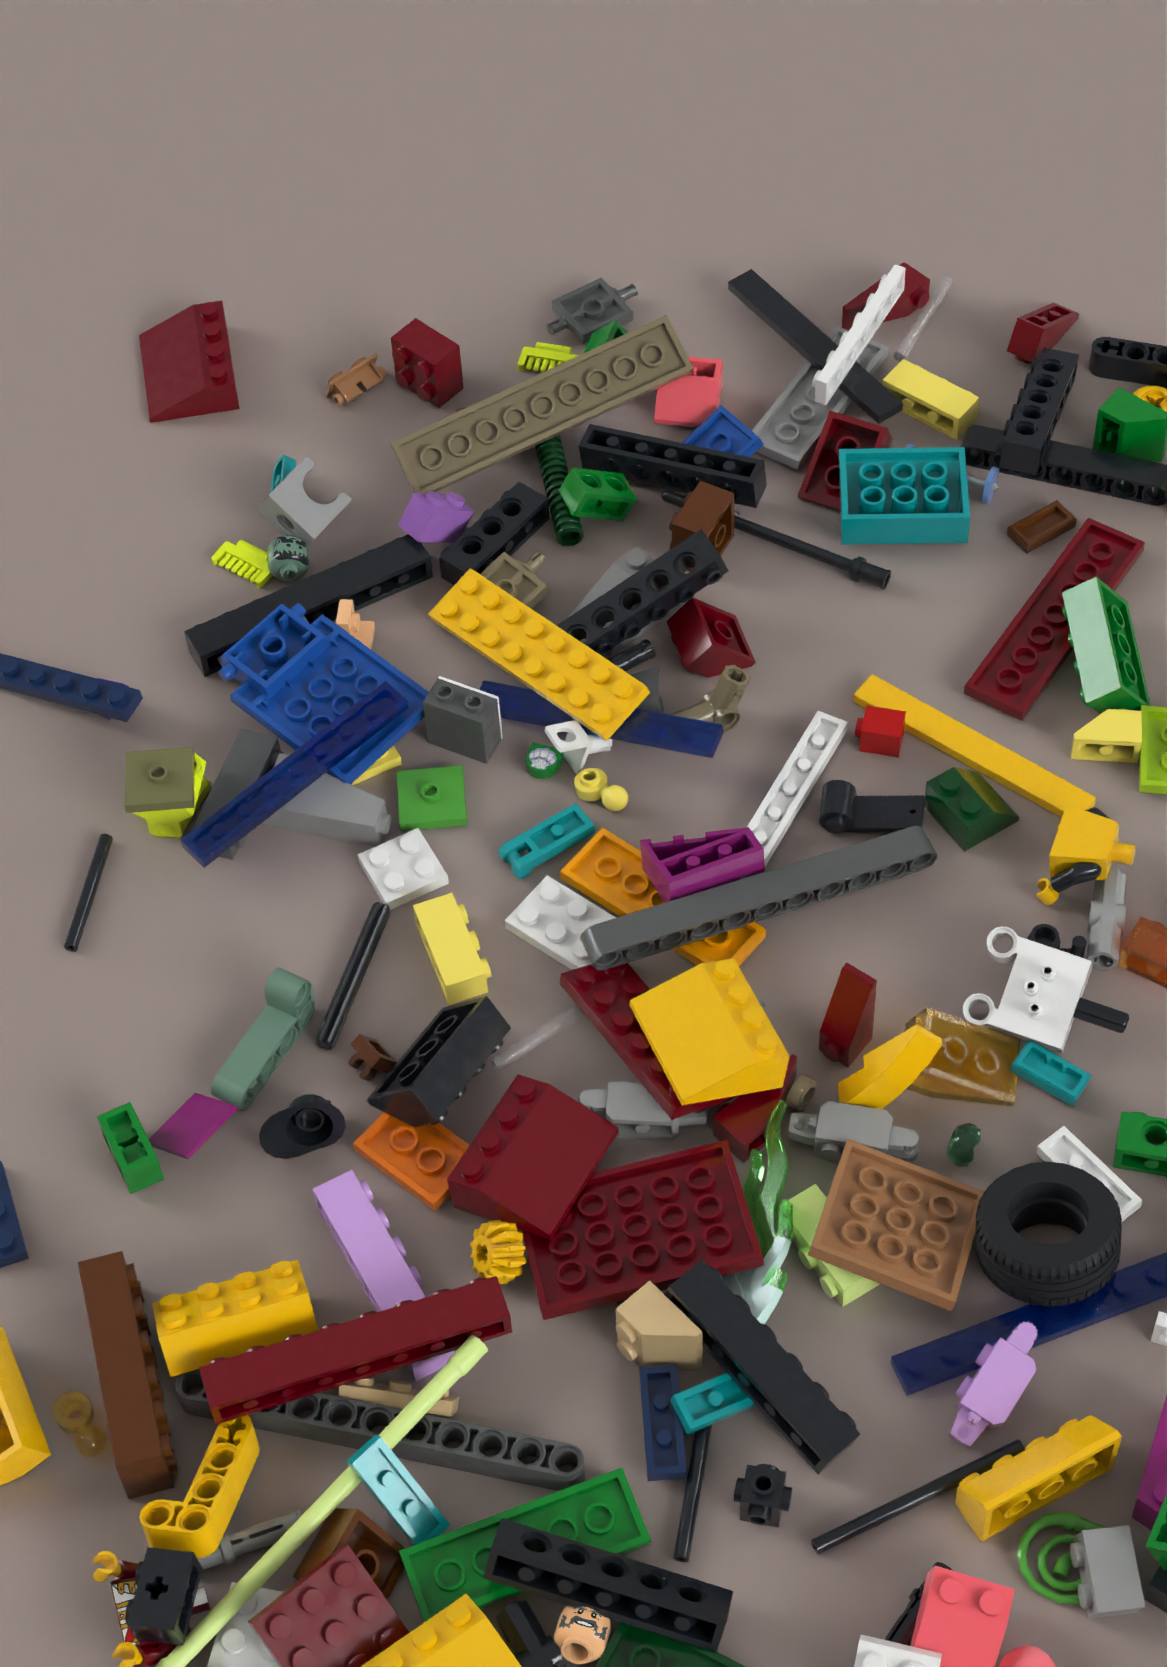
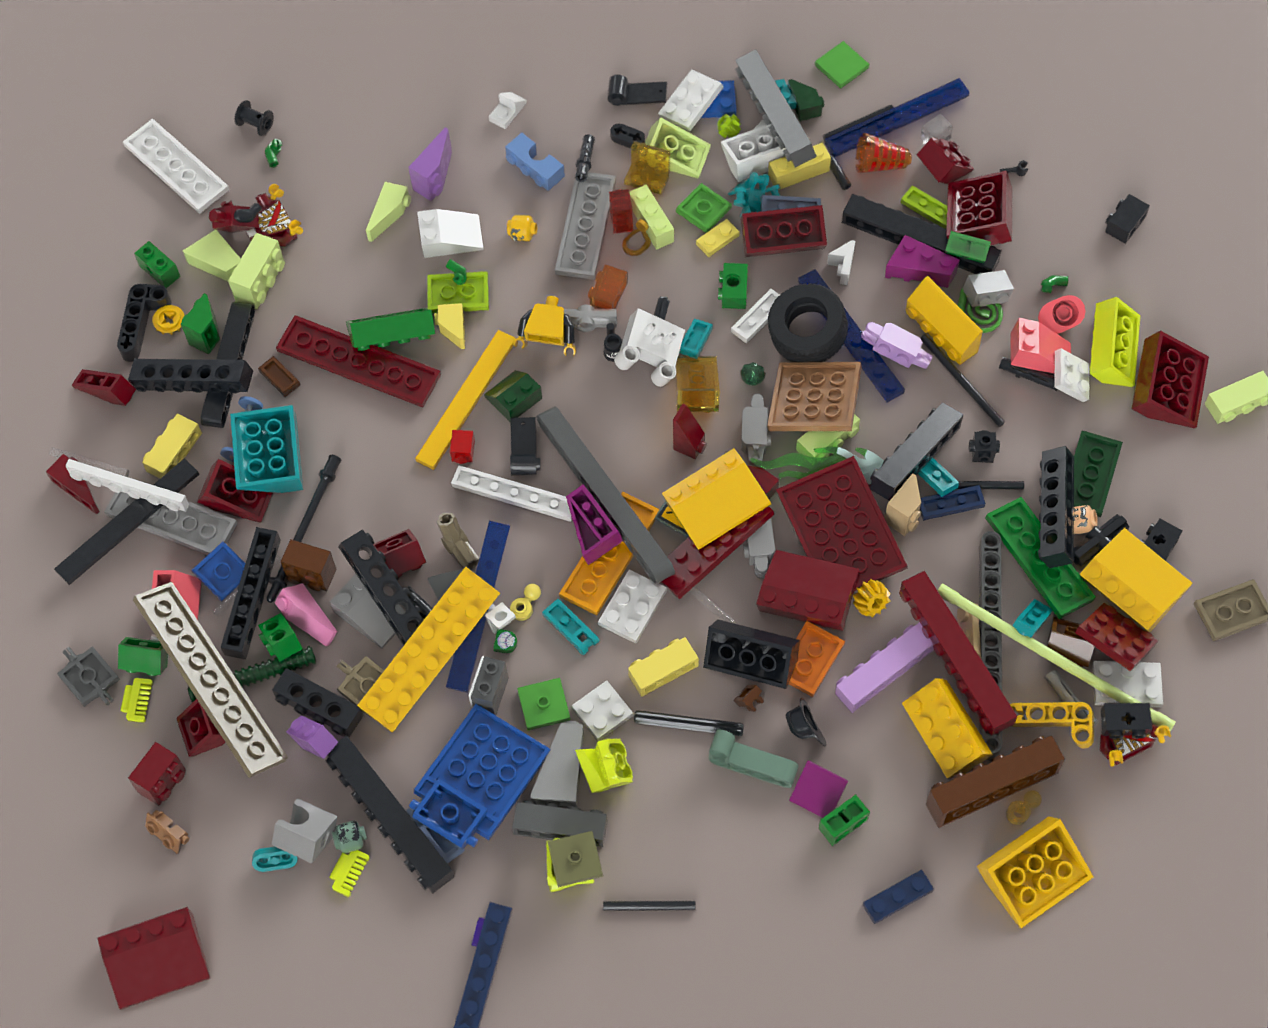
camera: 100 degrees left, 10 degrees up
(294, 774) = (554, 776): clear blue plate -> none
(305, 849) = (605, 765): none -> neon yellow piece
(351, 623) = (409, 778): light nougat bracket -> none
(639, 522) = (304, 612): none -> bright pink slope
(890, 1069) = (722, 410): yellow slope -> none

